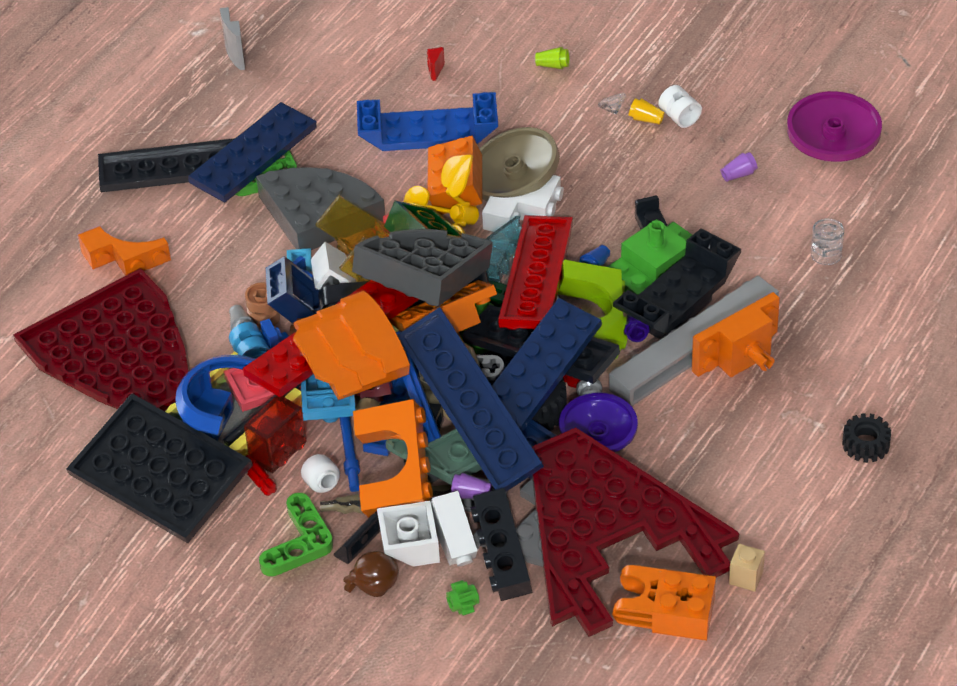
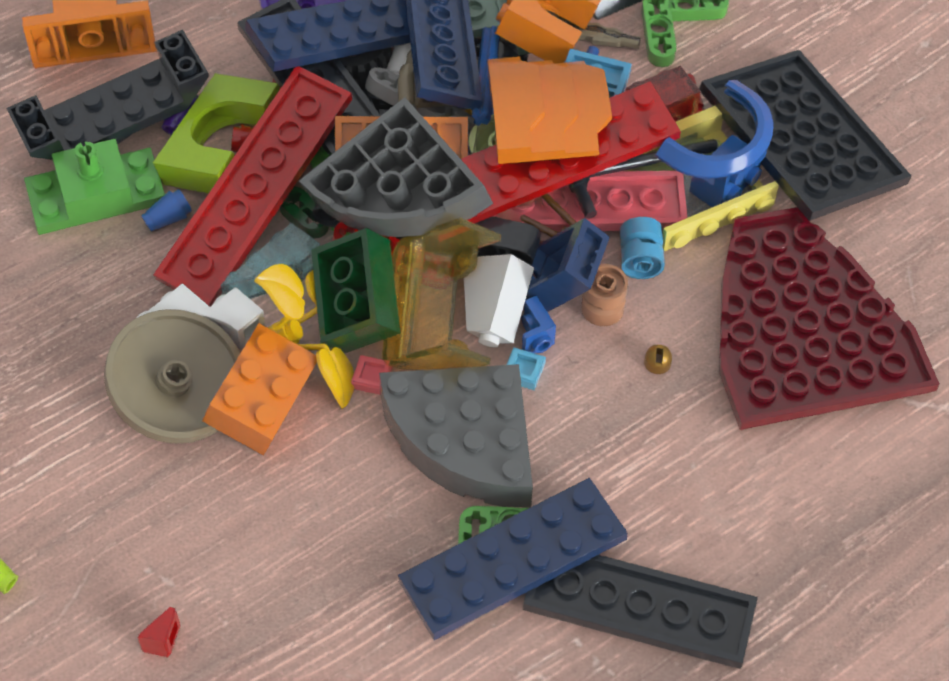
camera: 160 degrees left, 10 degrees up
(102, 249) = (747, 448): orange arch -> none
(211, 301) = (650, 356): none -> pearl gold hinge
(238, 316) = (639, 296): light grey cone -> none
(272, 335) = (615, 244): blue bracket -> none
(320, 473) = (631, 54): white head -> none
(427, 127) = (235, 515): blue slope -> none
(647, 211) = (58, 248): black bracket -> none
(673, 353) = (74, 72): light grey brick -> none

